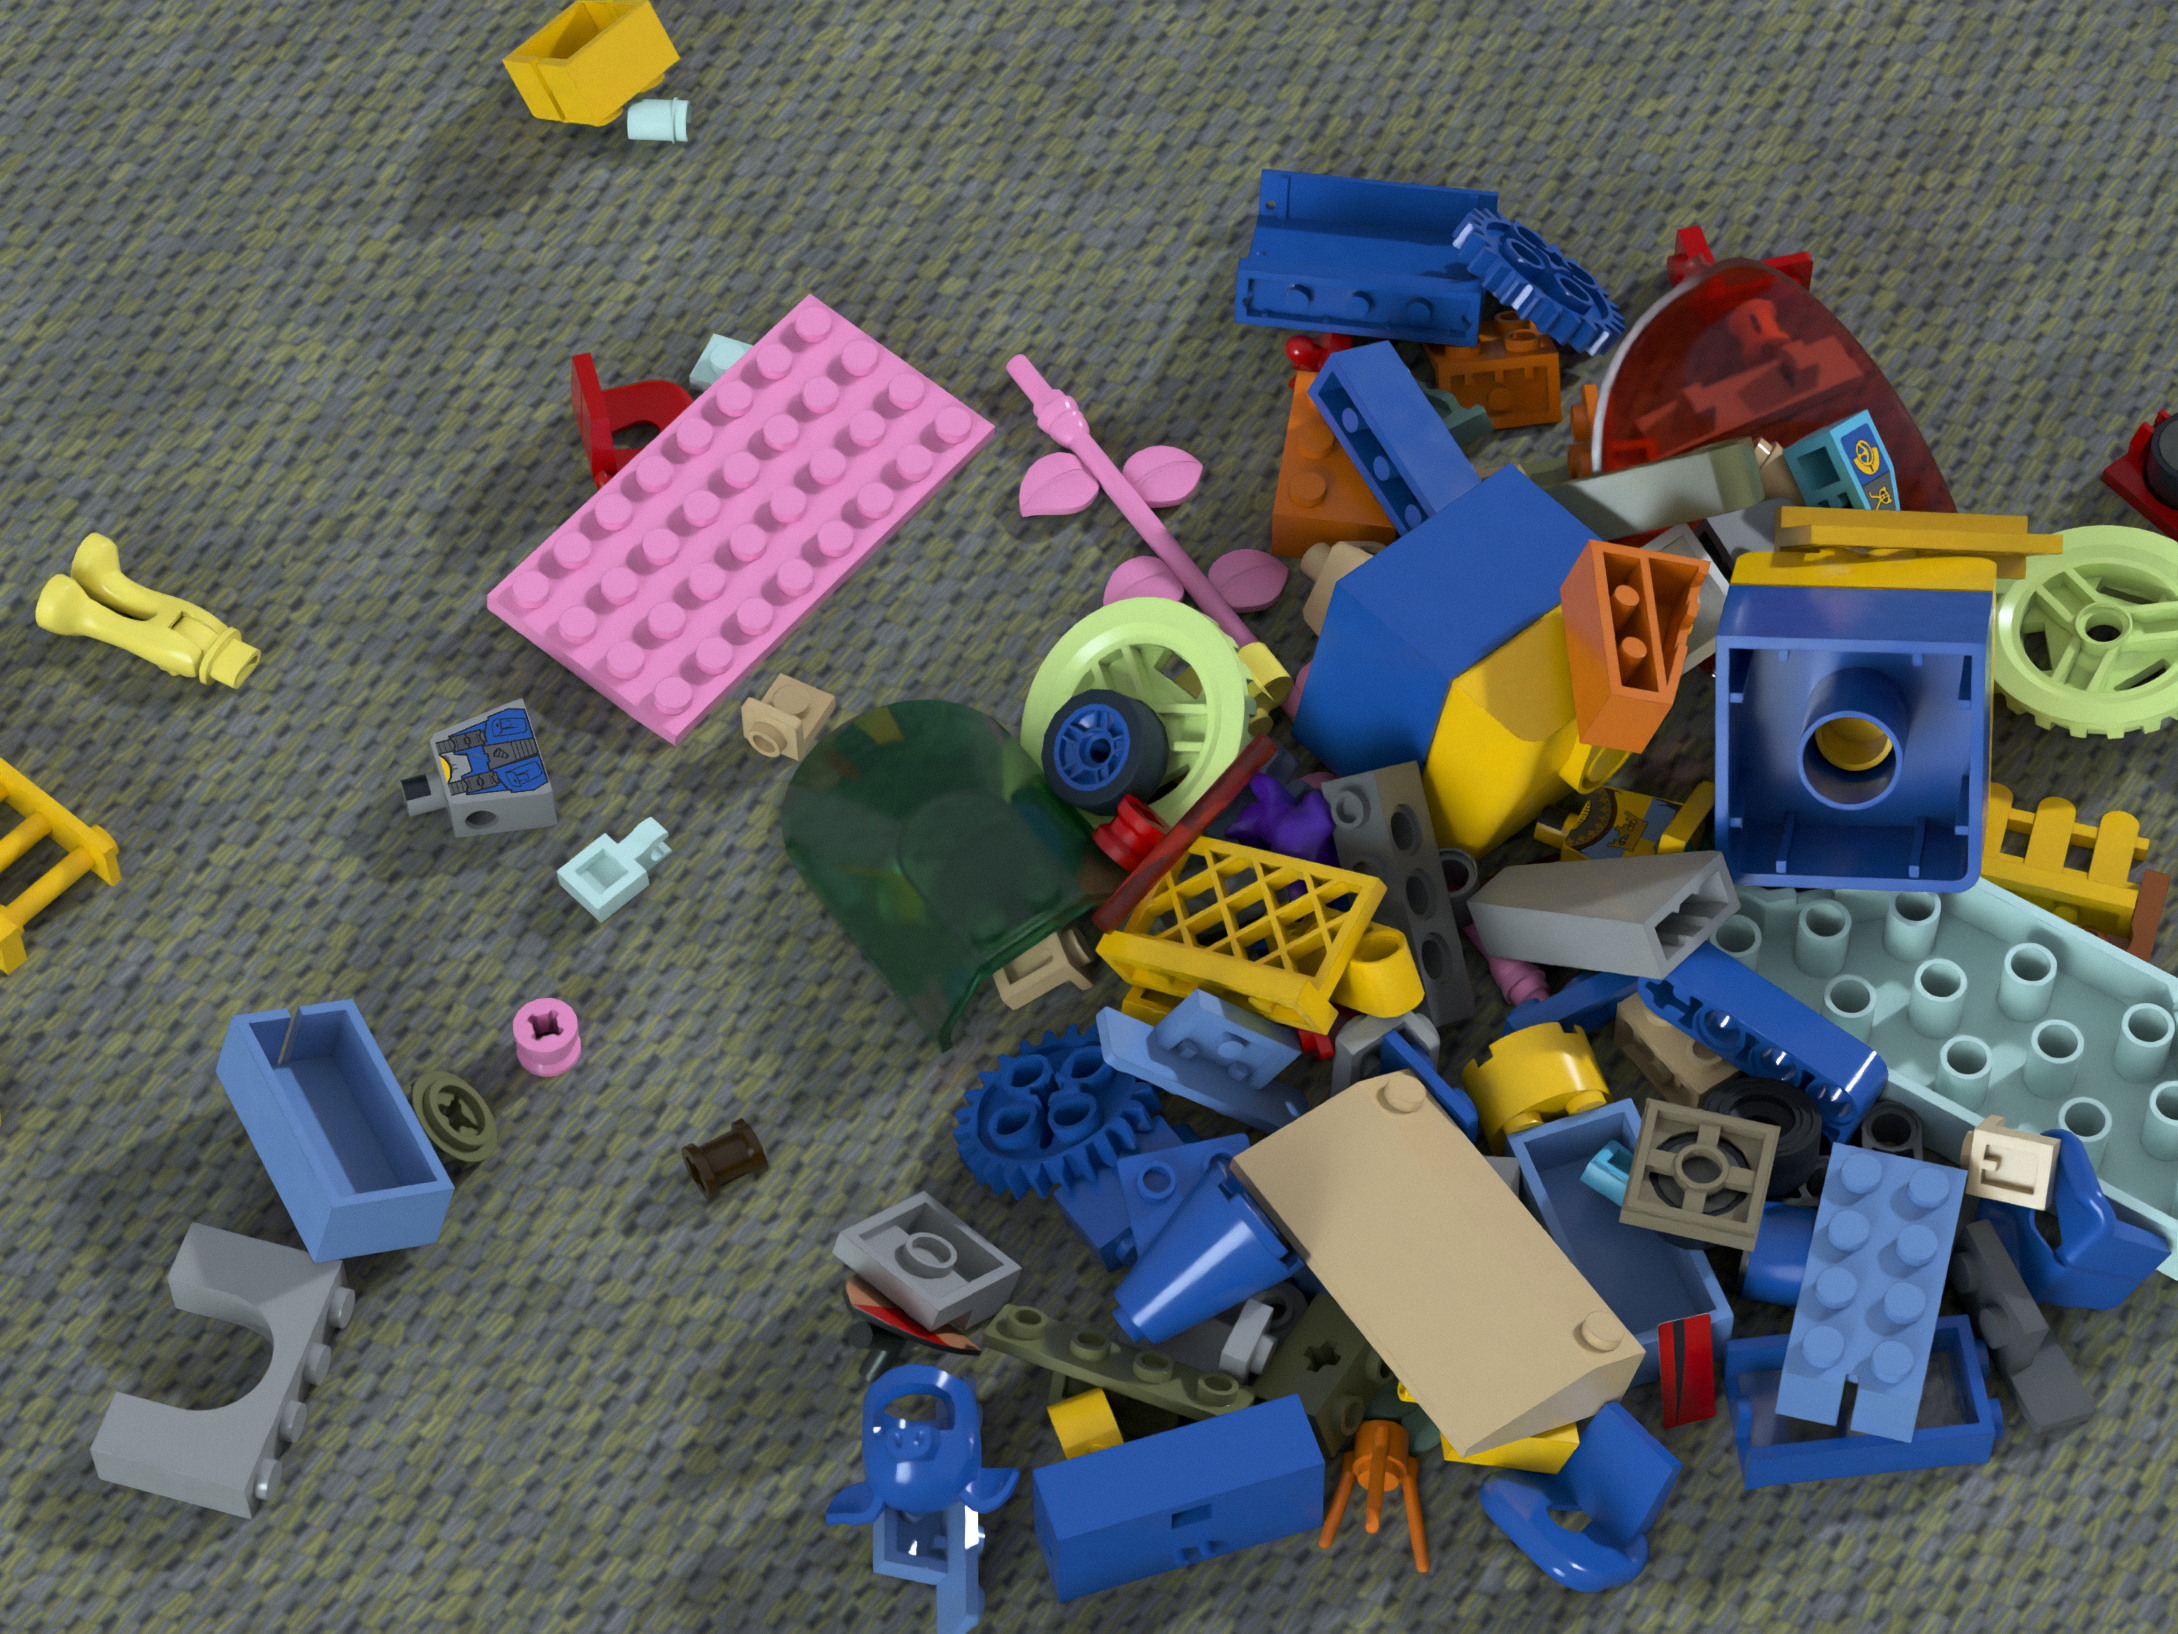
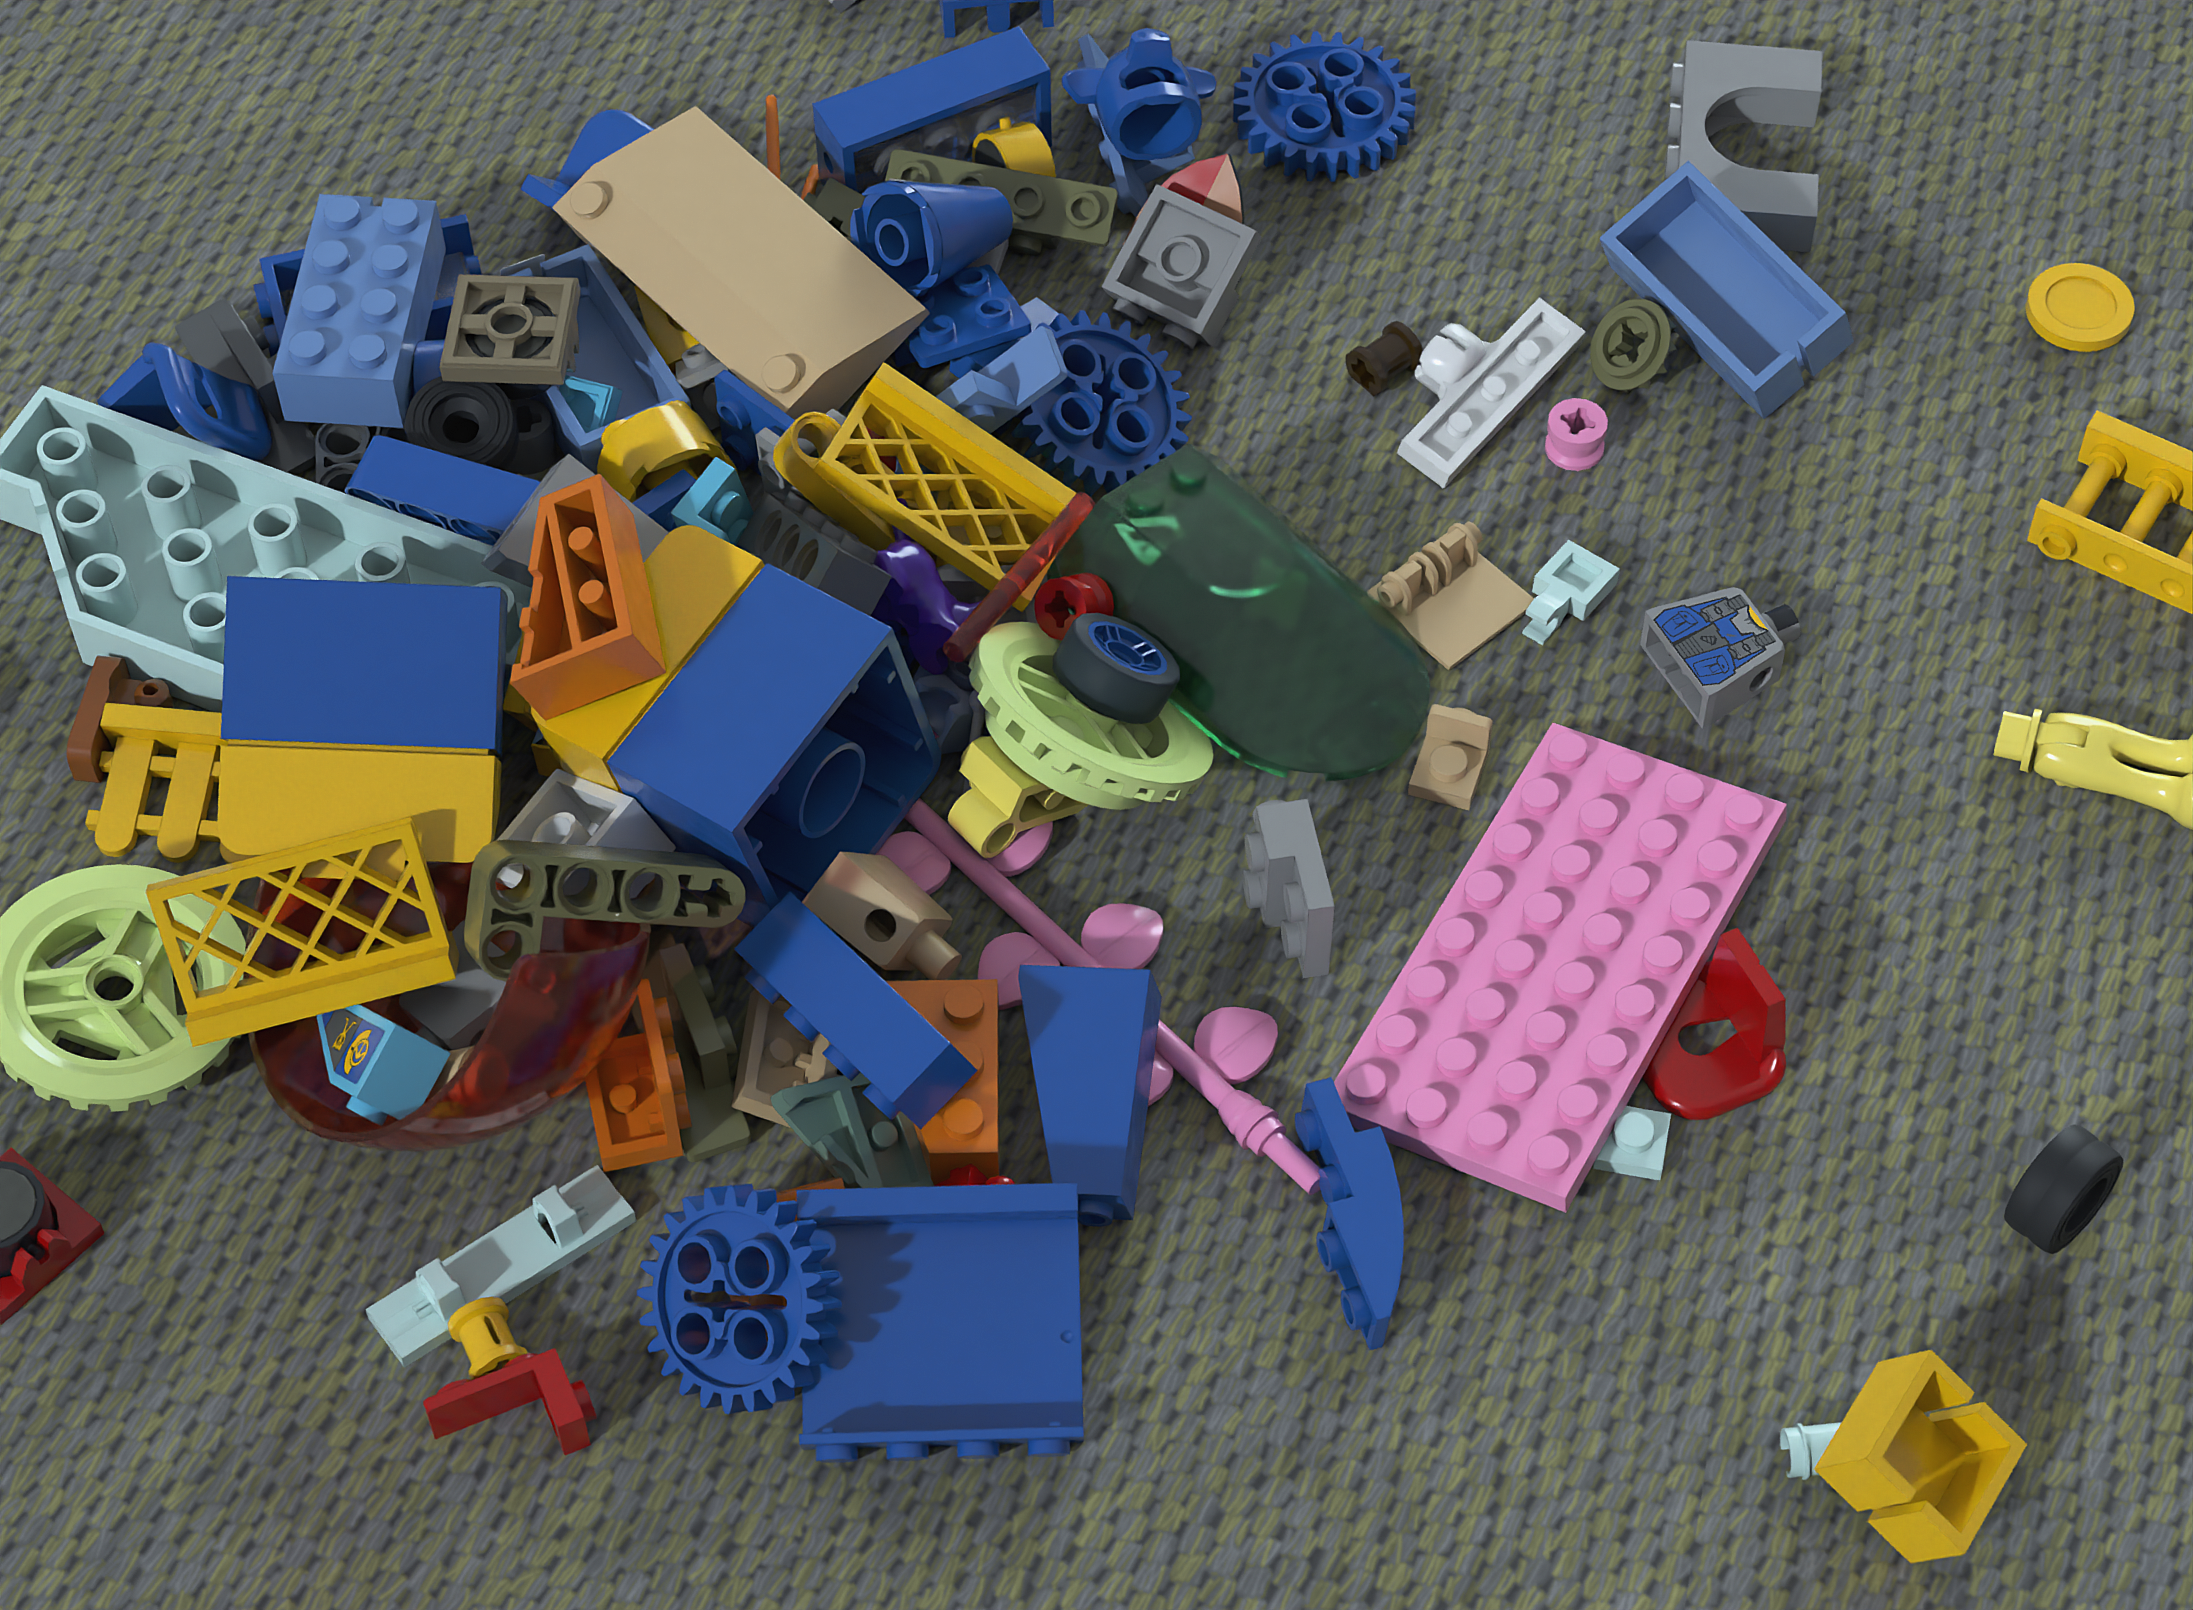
camera: 170 degrees right, 0 degrees up
(381, 244) = (2063, 1189): none -> black tyre
(625, 1107) = (1483, 386): none -> white plate
(634, 1516) = (1292, 122): none -> blue gear
(736, 888) = (1452, 596): none -> tan hinge
(981, 576) = (1290, 882): none -> light grey plate
(987, 322) = (1363, 1213): none -> blue slope
(1201, 446) = (1093, 1075): none -> blue slope
(1498, 984) = (716, 503): none -> medium azure bracket
(2010, 1164) = (229, 395): tan bracket -> none

